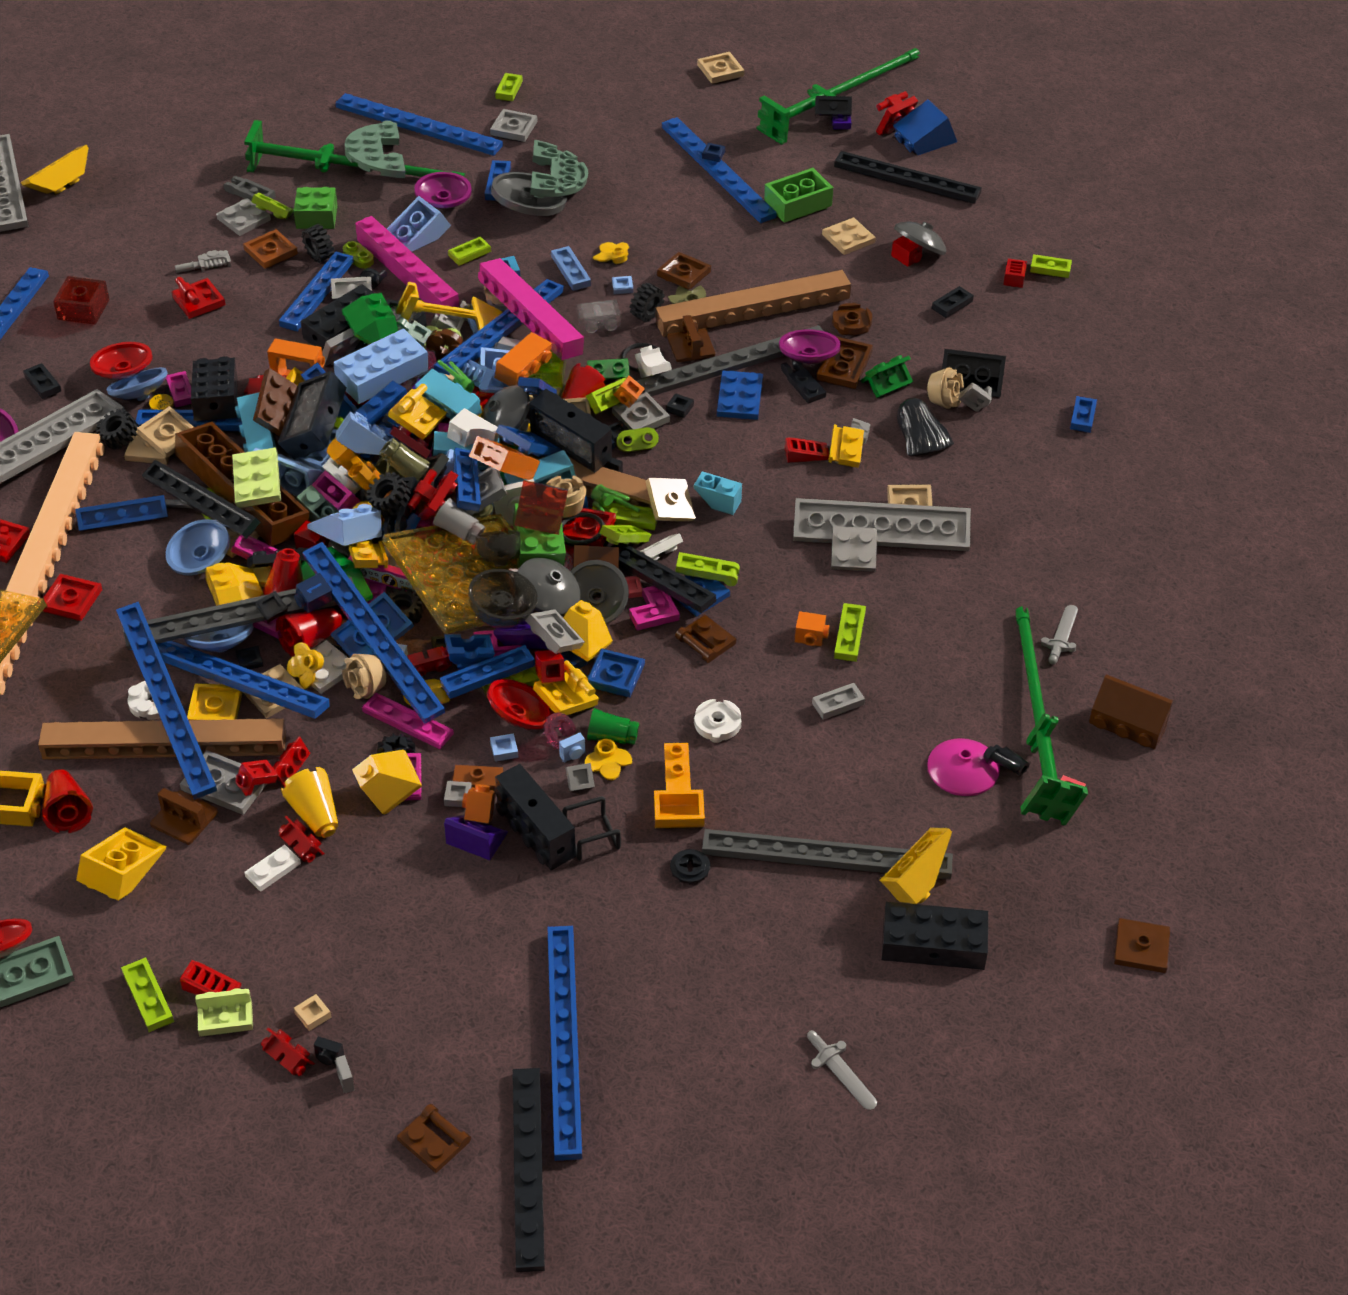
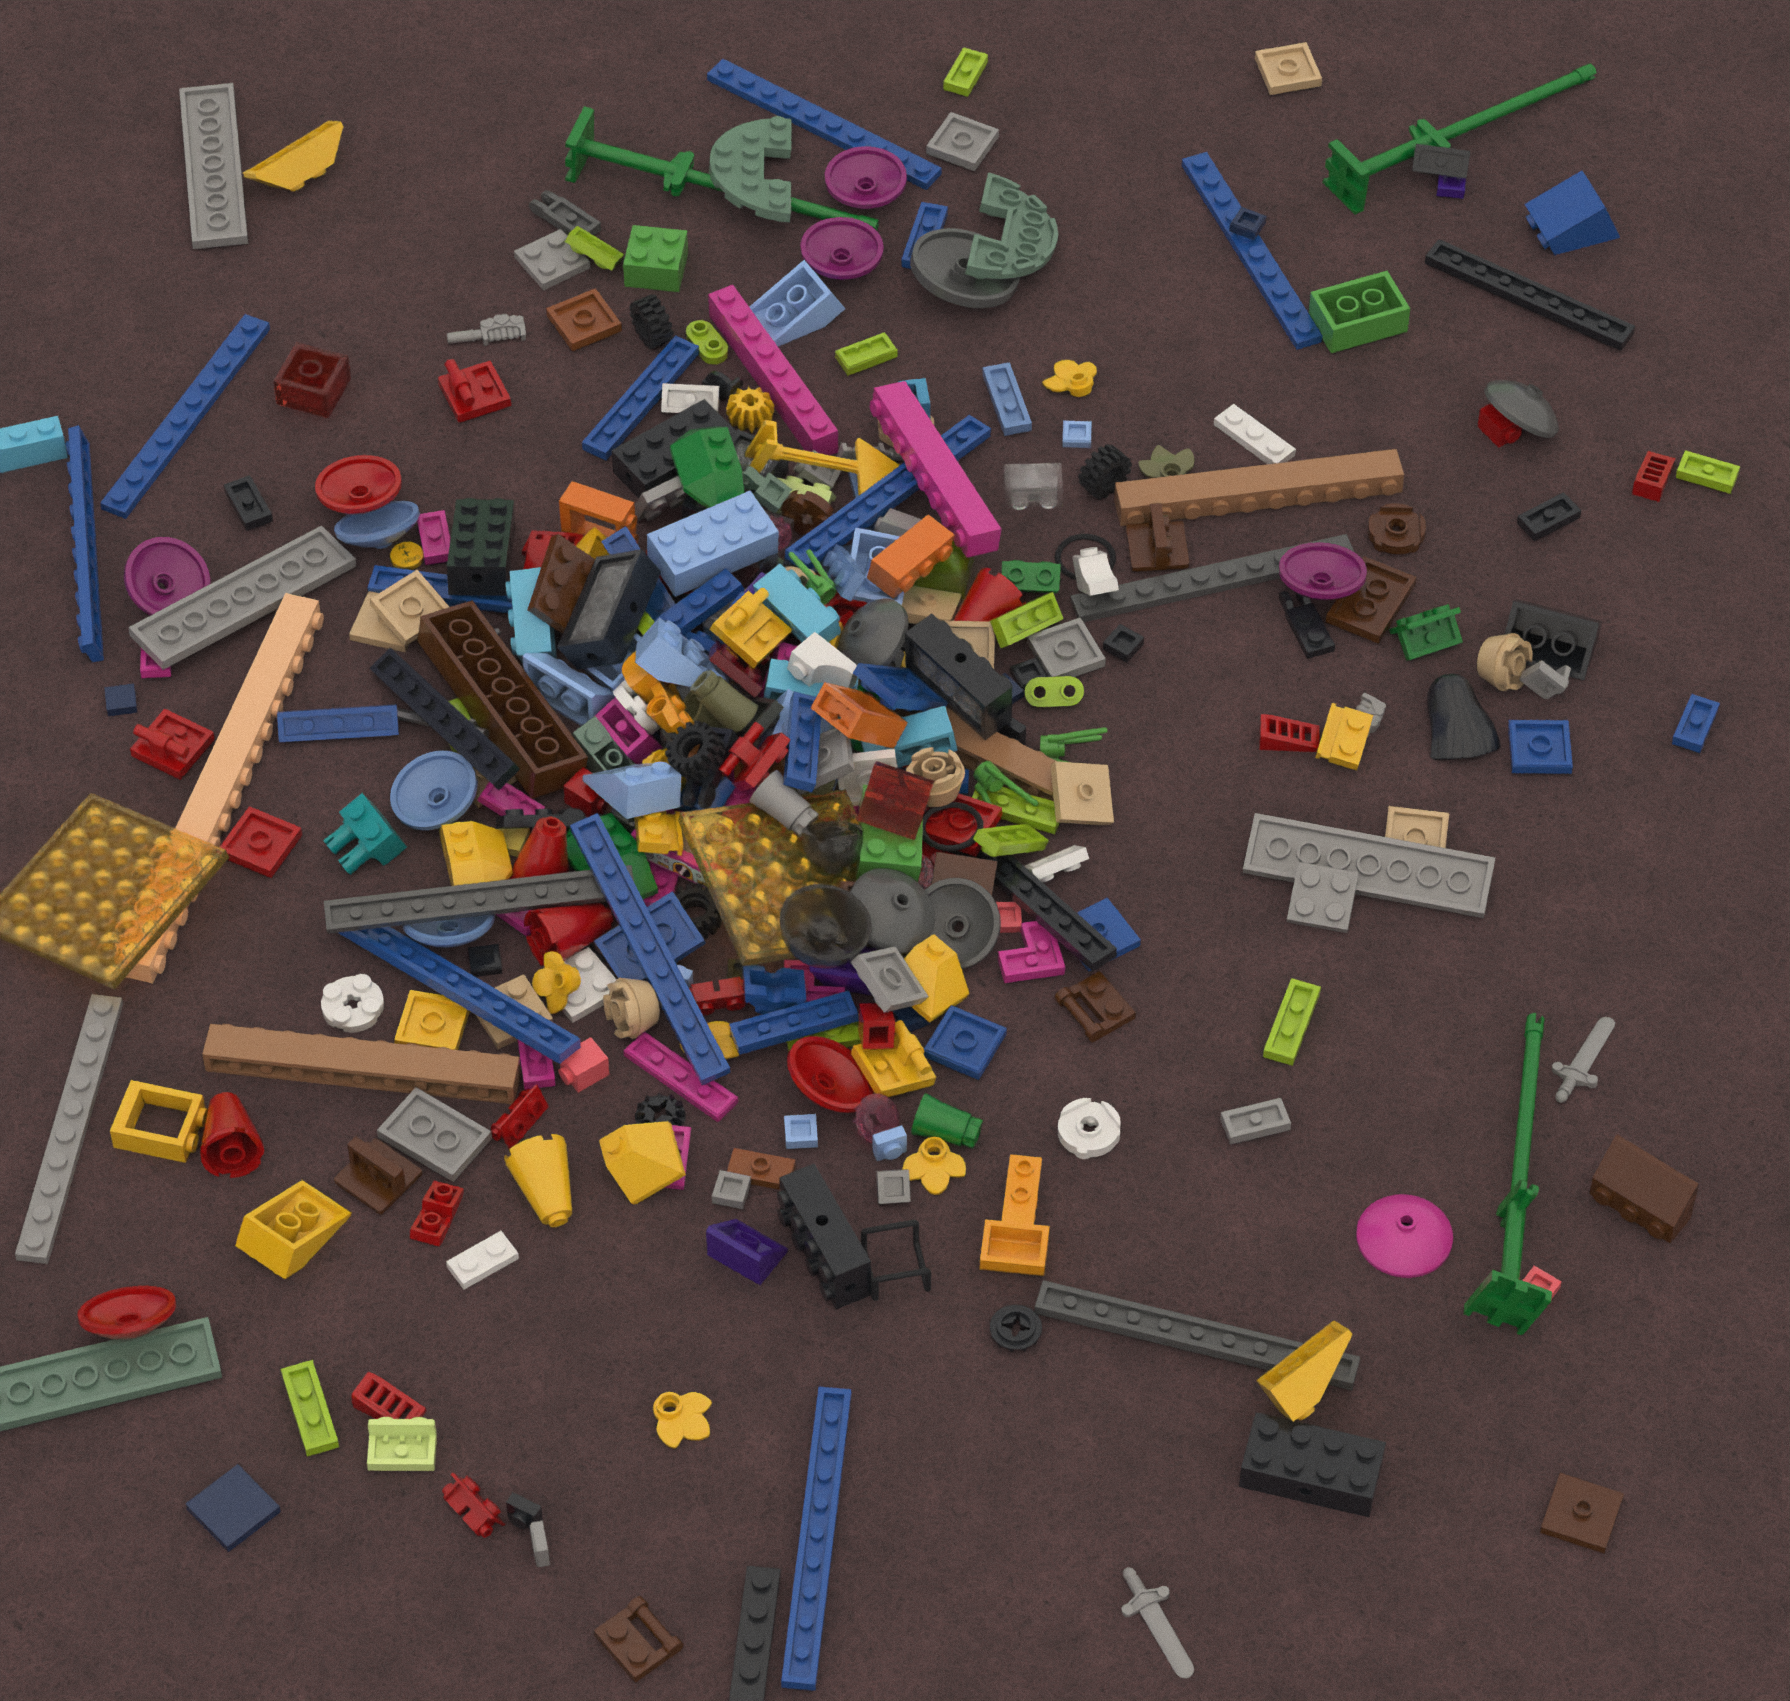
camera: 10 degrees right, 5 degrees up
(92, 1079) = (233, 1508): none -> dark blue tile
(117, 428) = (351, 601): black tyre -> none
(153, 578) = (376, 835): none -> teal brick
(166, 701) = (370, 1014): blue plate -> none
(233, 838) = (437, 1213): none -> red slope
(253, 774) = (473, 1130): red bracket -> none
(256, 477) = (522, 700): yellowish green plate -> none
(271, 606) = (521, 896): black tile -> none
(296, 725) = (535, 1067): none -> dark pink plate
(307, 845) = (516, 1216): red hinge -> none
(312, 1012) = (510, 1459): tan plate -> none
(313, 593) = (577, 885): dark blue brick -> none
(334, 720) = (584, 1066): none -> coral brick
(392, 287) = (749, 408): none -> yellow gear
(446, 966) = (685, 1420): none -> yellow plate
(452, 148) = (865, 177): none -> magenta dish
(479, 804) = (756, 1209): orange brick -> none
(534, 386) = (920, 608): blue plate -> none
(629, 391) = (1053, 617): orange bracket -> none
(645, 470) = (1054, 745): none -> bright green plant
(684, 270) = (1168, 421): reddish brown plate -> none
(708, 568) = (1115, 904): lime plate -> none
(719, 492) = (1152, 788): medium azure slope -> none
(740, 395) = (1212, 634): blue plate -> none
(741, 273) = (1254, 436): none -> white plate
(811, 629) = (1239, 1011): orange brick -> none
(848, 236) = (1421, 386): tan plate -> none
(896, 111) = (1533, 183): red plate -> none
(981, 439) = (1540, 746): none -> blue plate
(1006, 758) = (1462, 1233): black plant -> none

